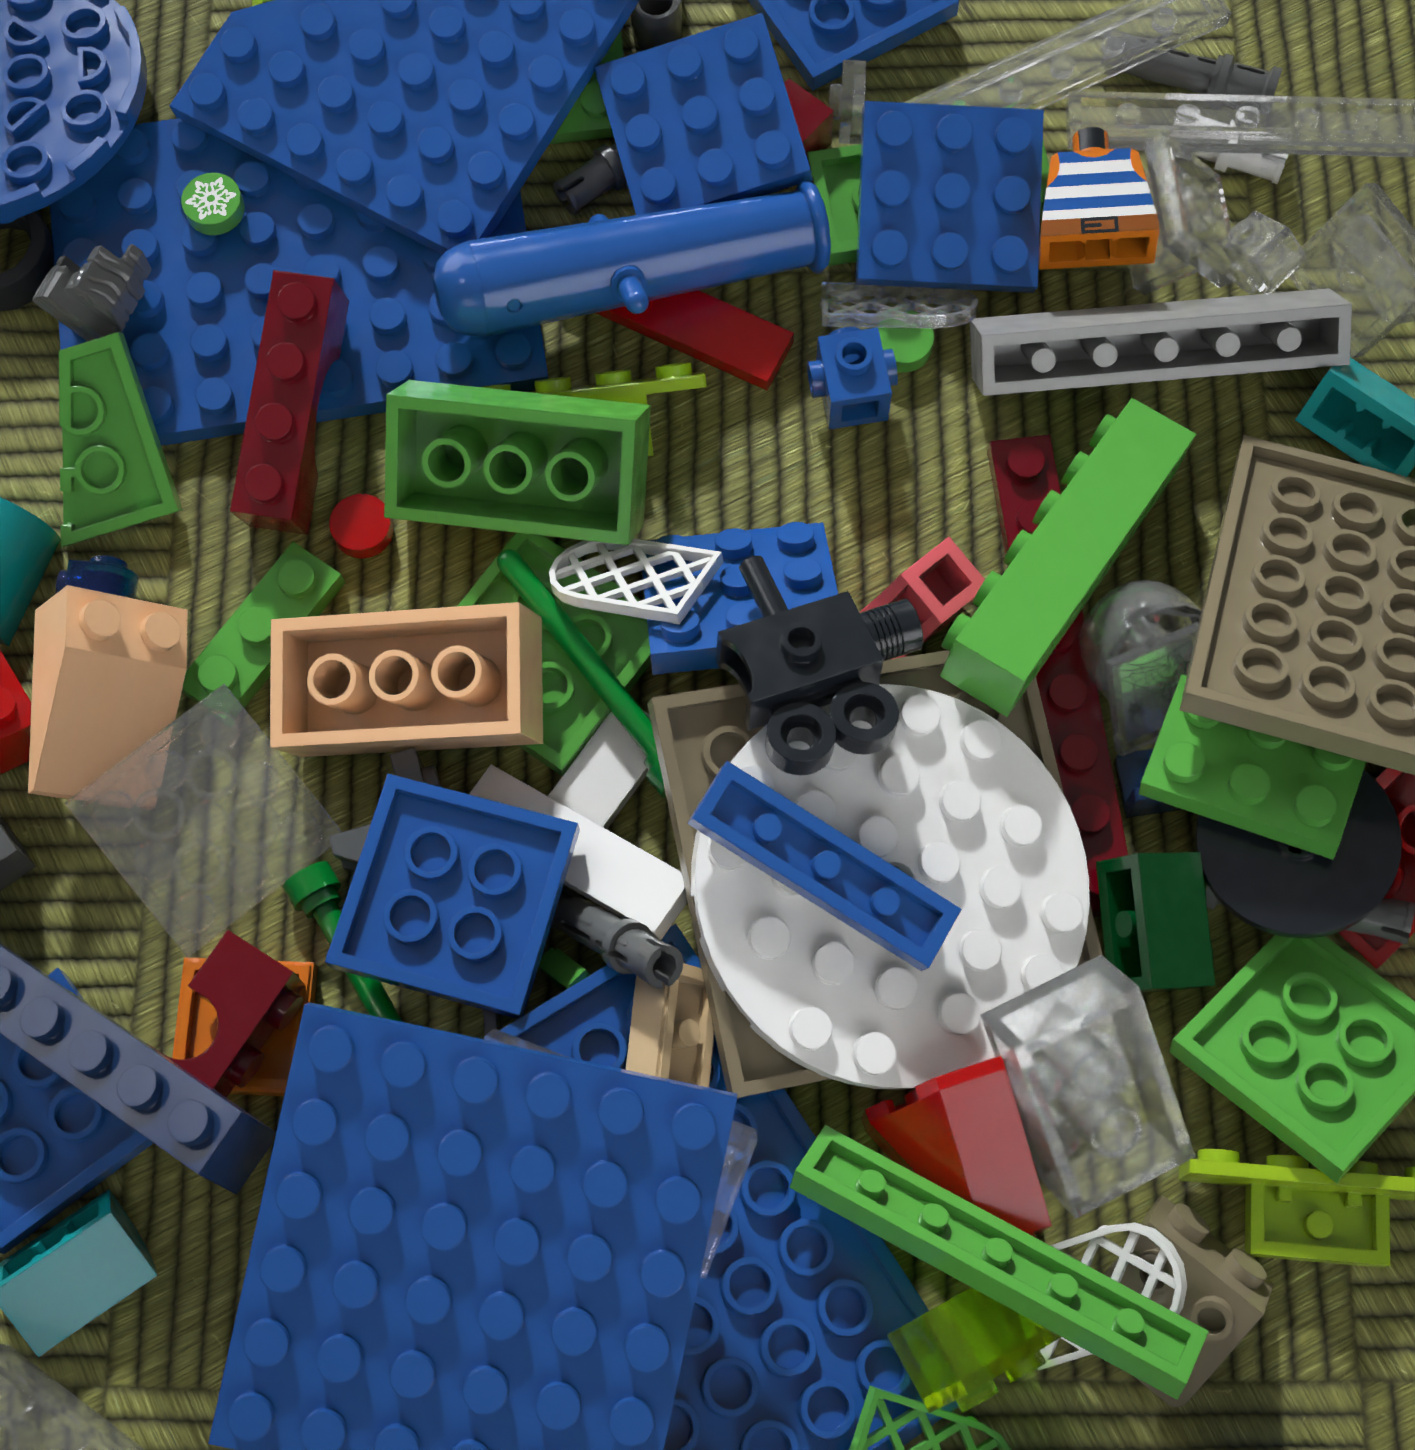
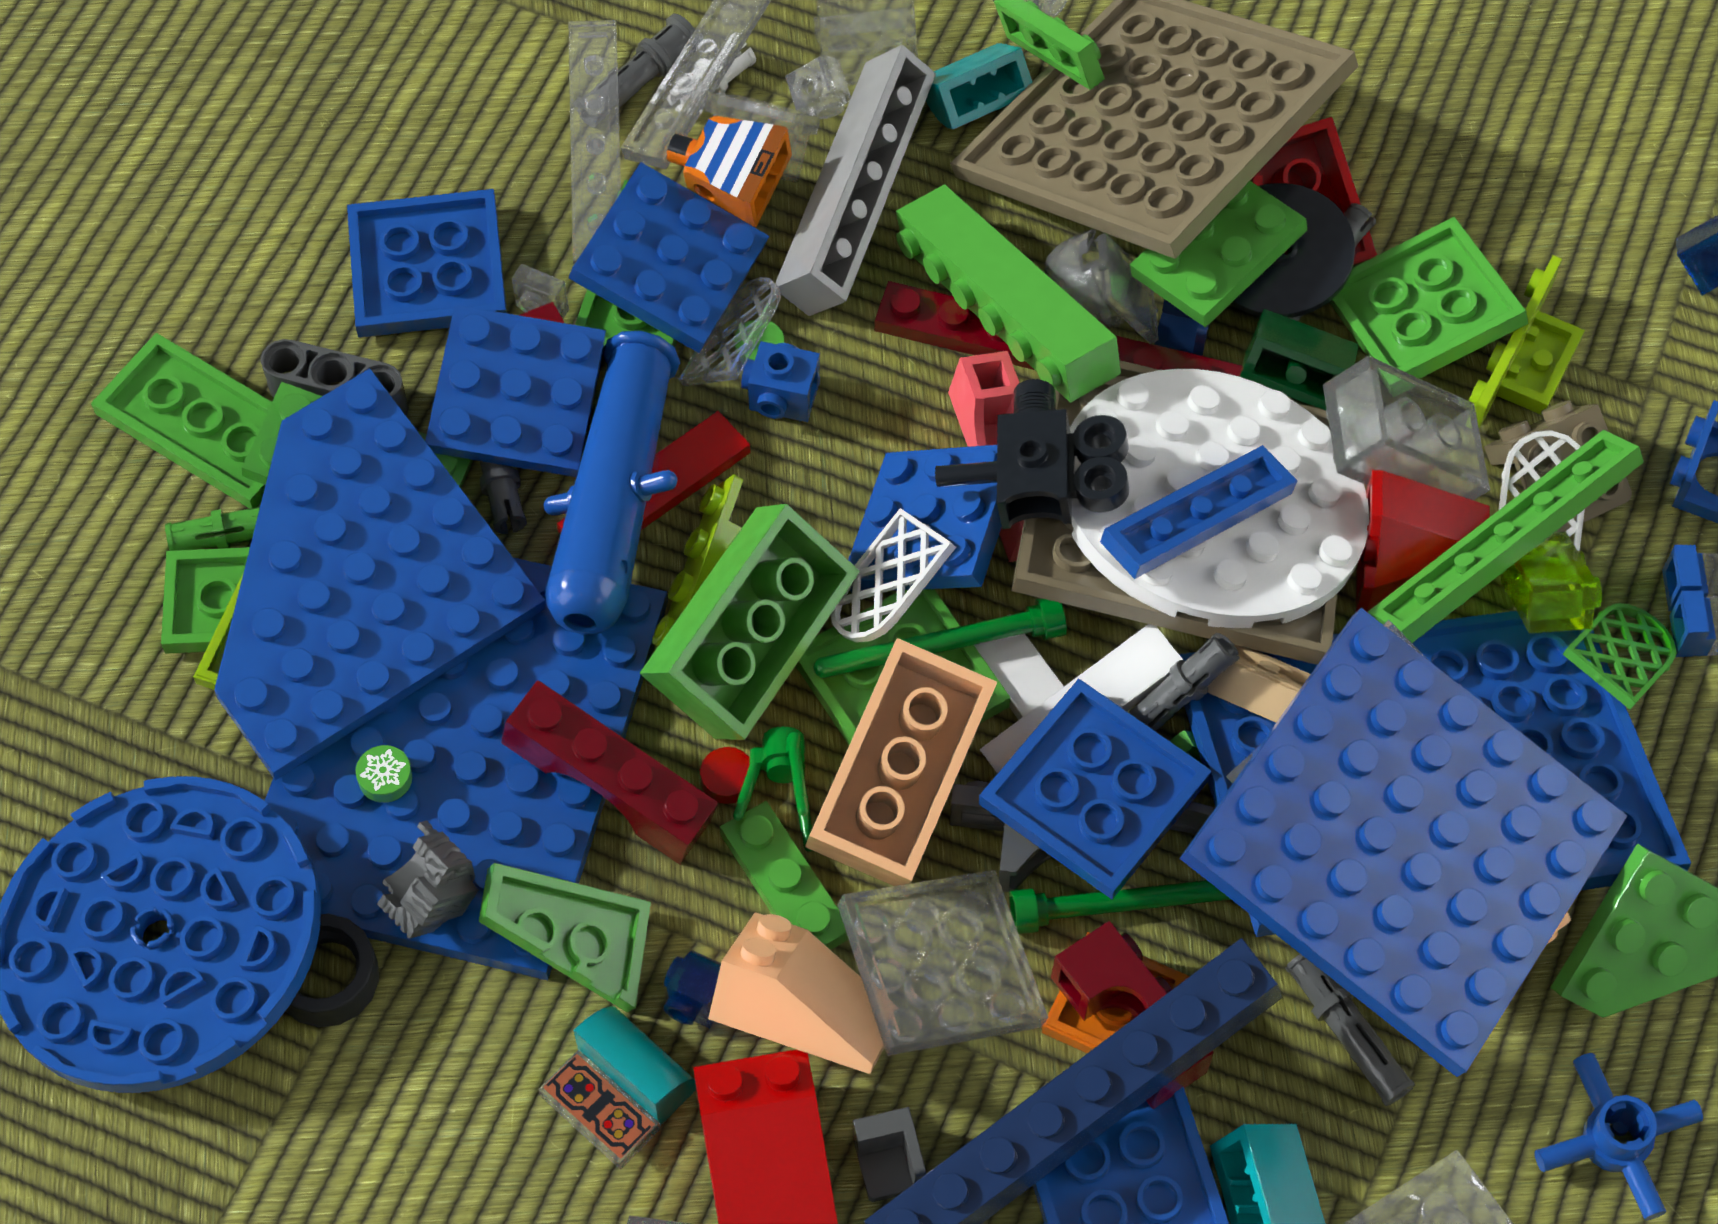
camera: 70 degrees left, 10 degrees down
(392, 567) = (784, 762): none -> green plant

